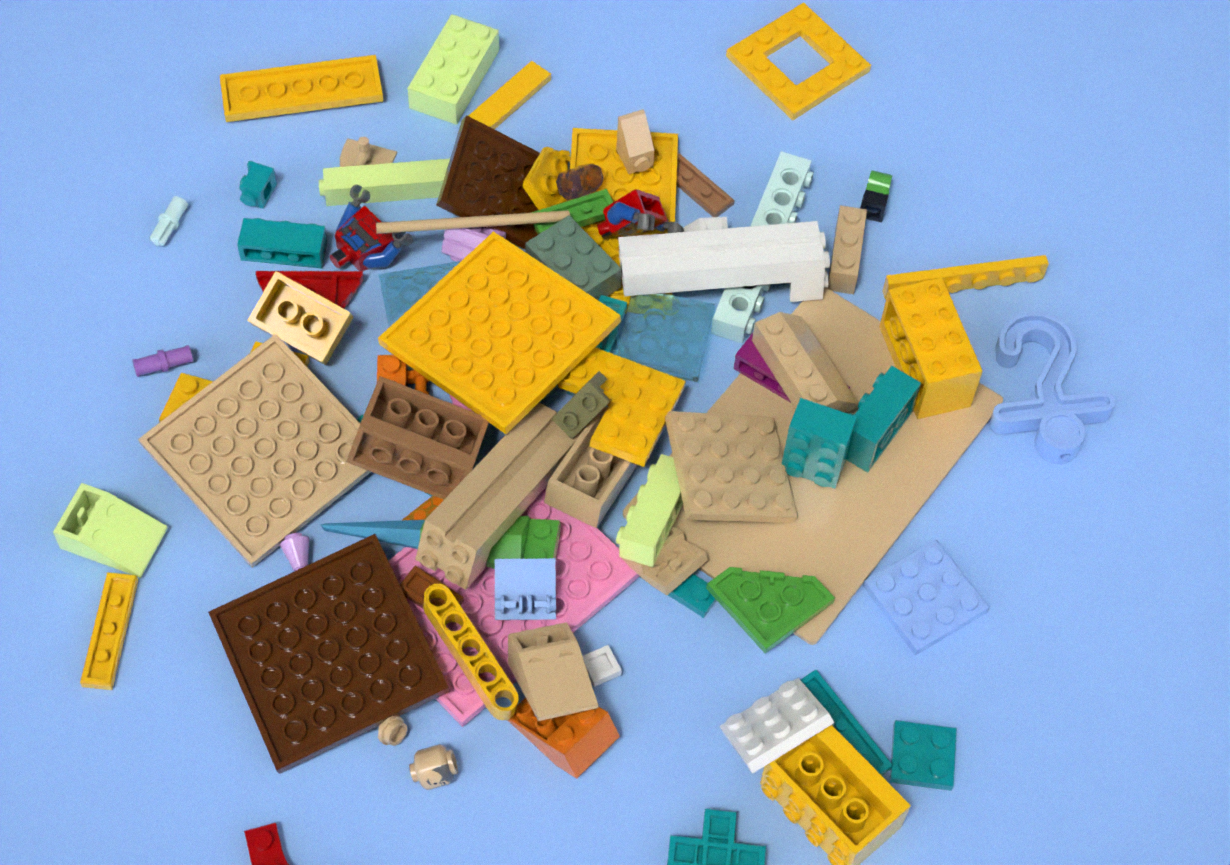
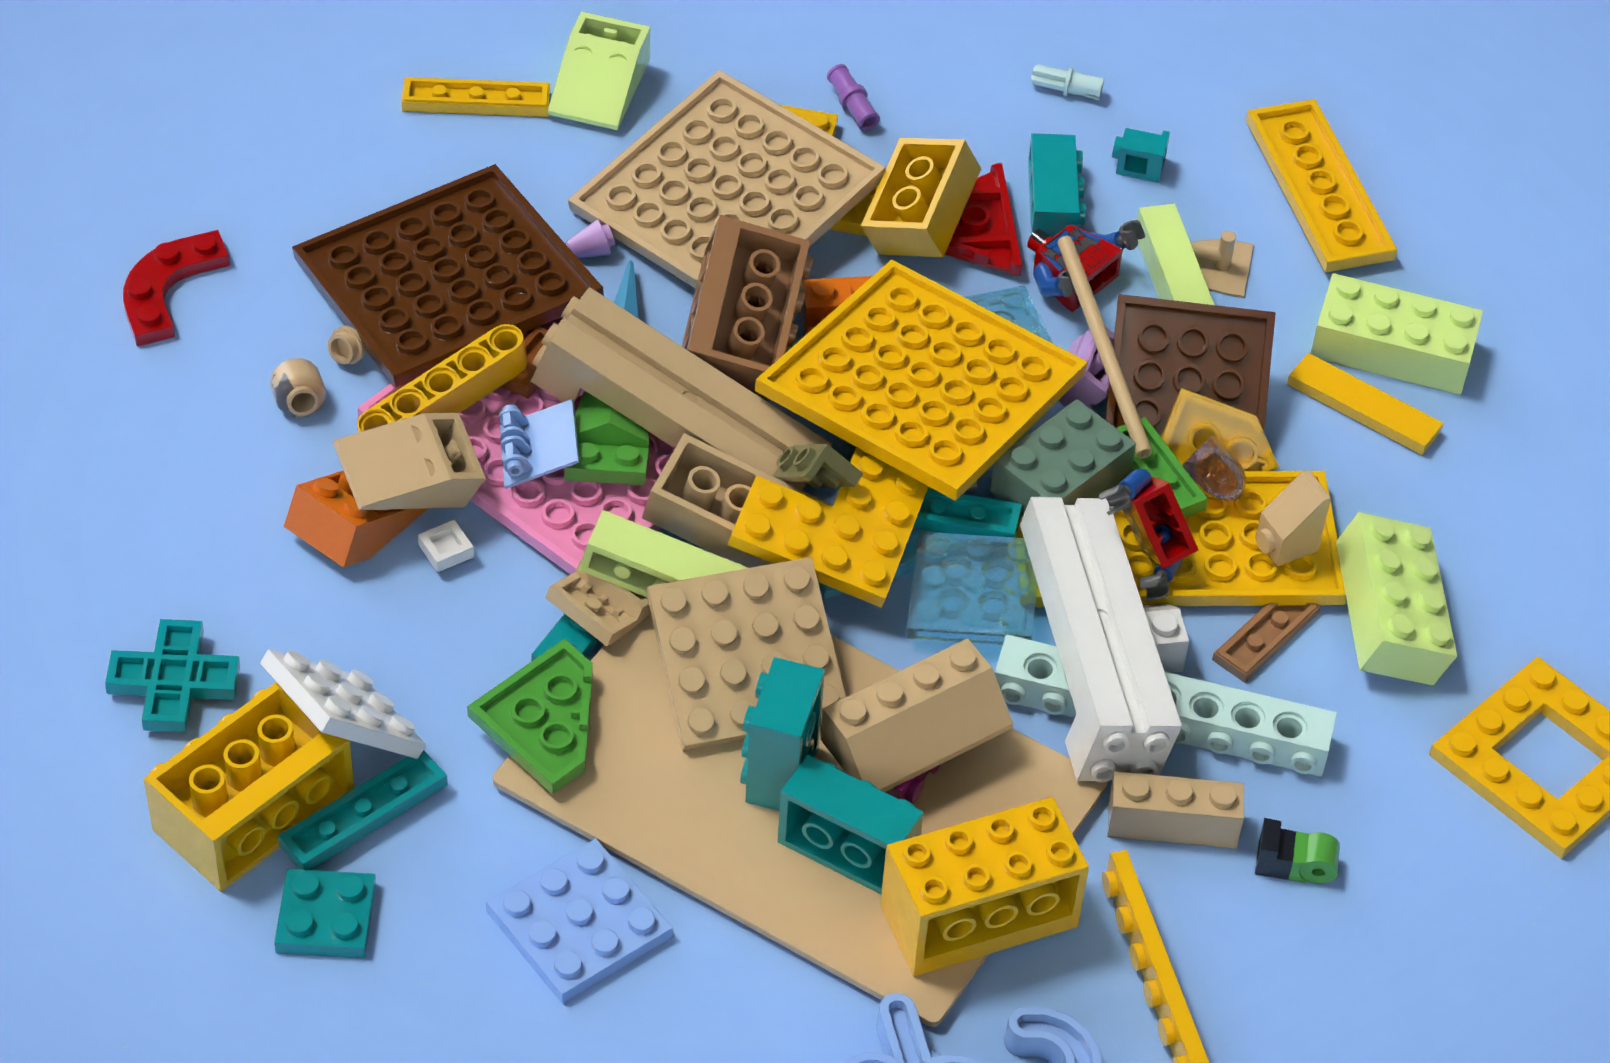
camera: 85 degrees right, 10 degrees down
(690, 106) = (1395, 599): none -> yellowish green brick

